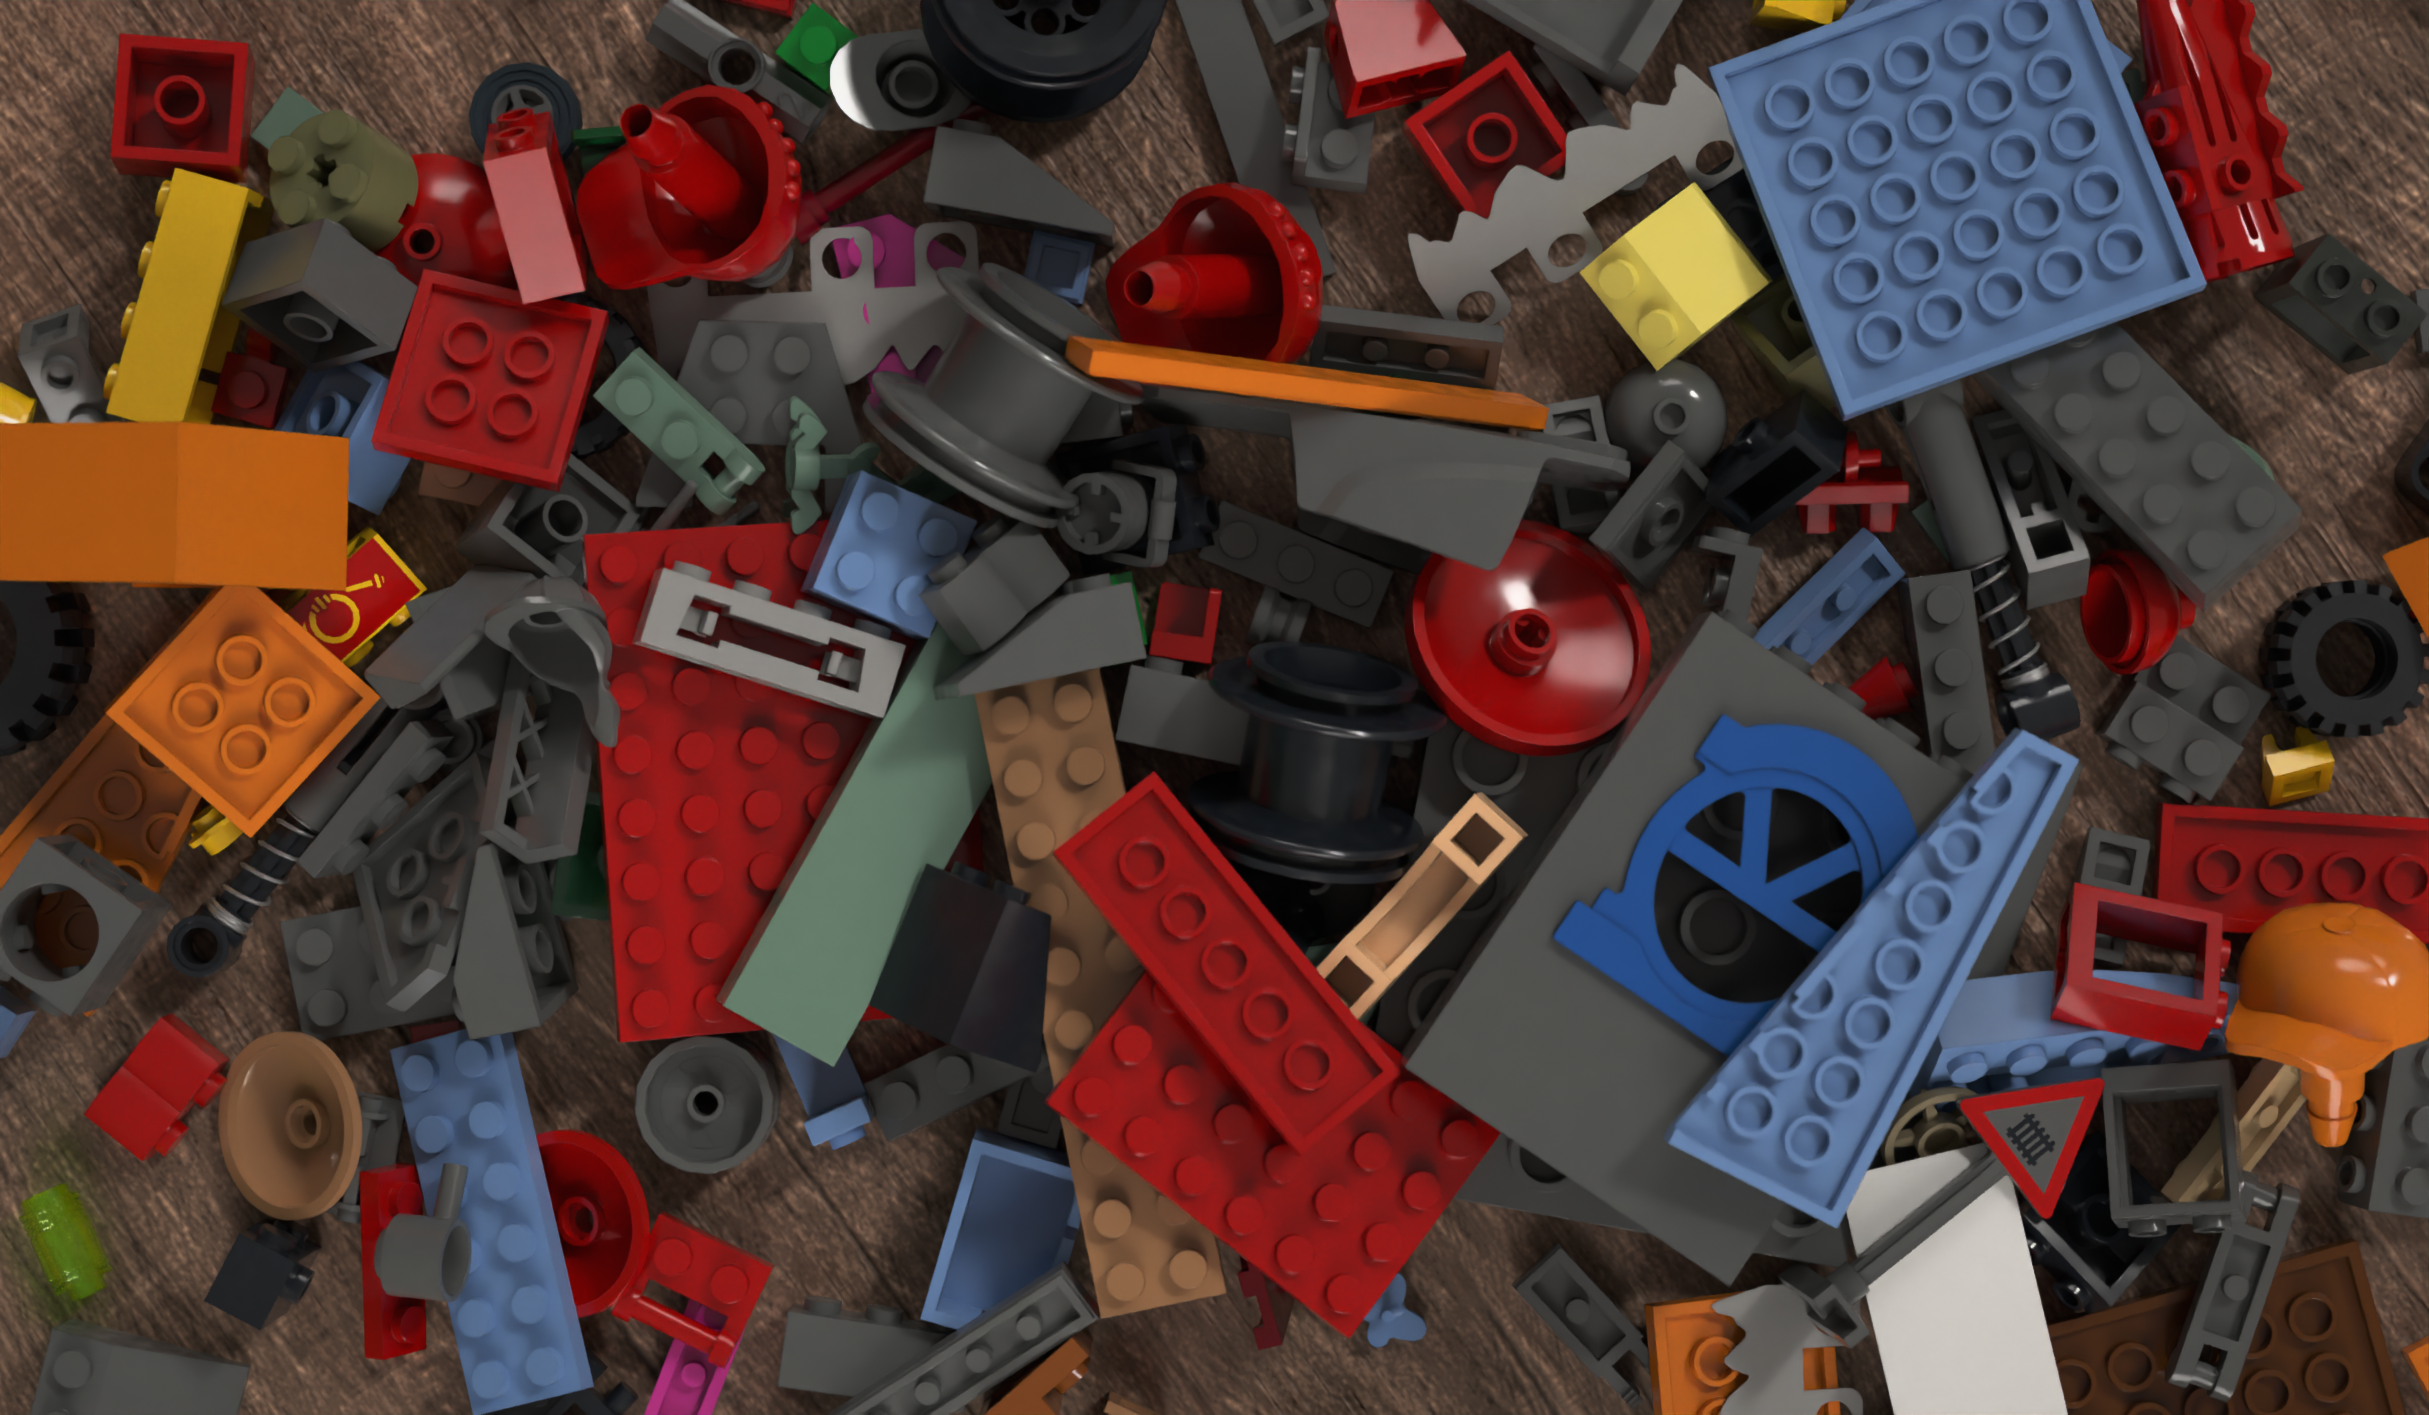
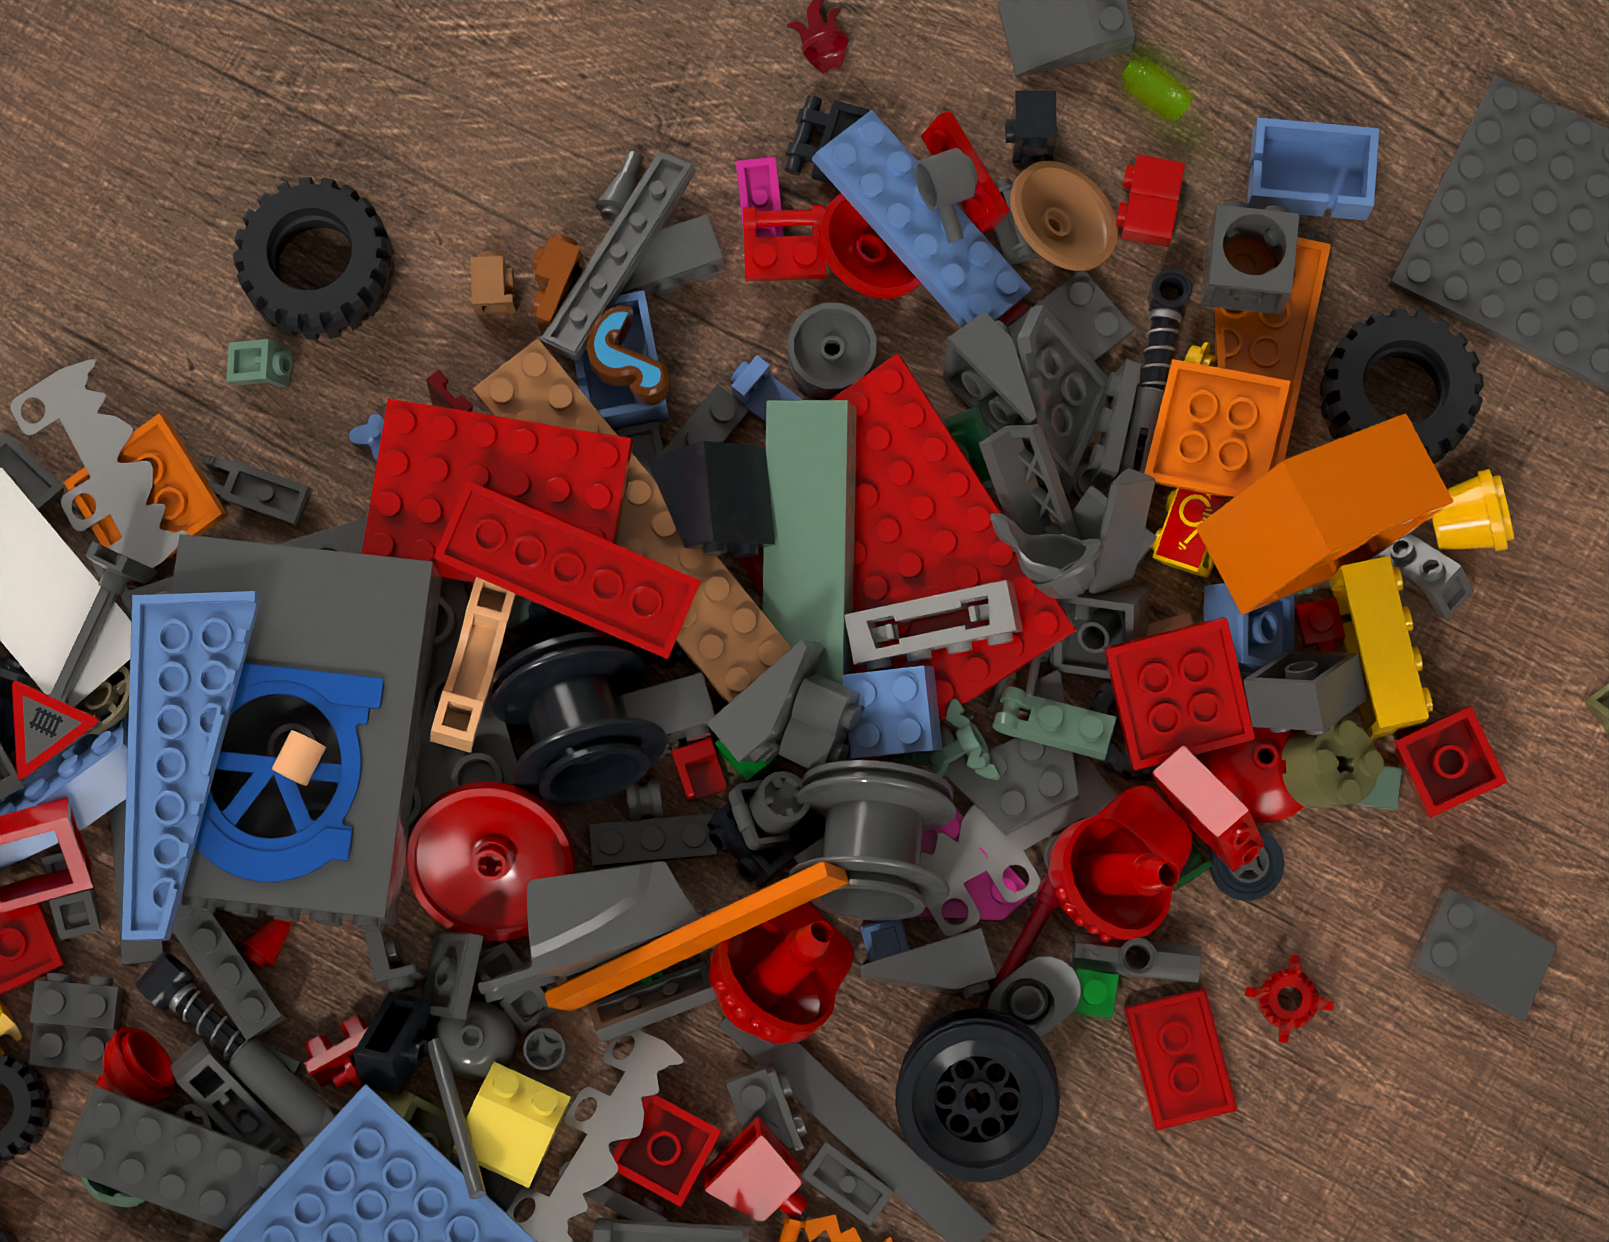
camera: 155 degrees right, 10 degrees down
(1005, 1221) = (622, 366): none -> reddish brown animal
(1587, 351) = (540, 1047): none -> dark grey wheel
(1721, 883) = (298, 758): none -> light nougat beam
(1745, 316) = (456, 1119): none -> dark grey bar
(1833, 598) = (323, 977): medium blue plate -> none

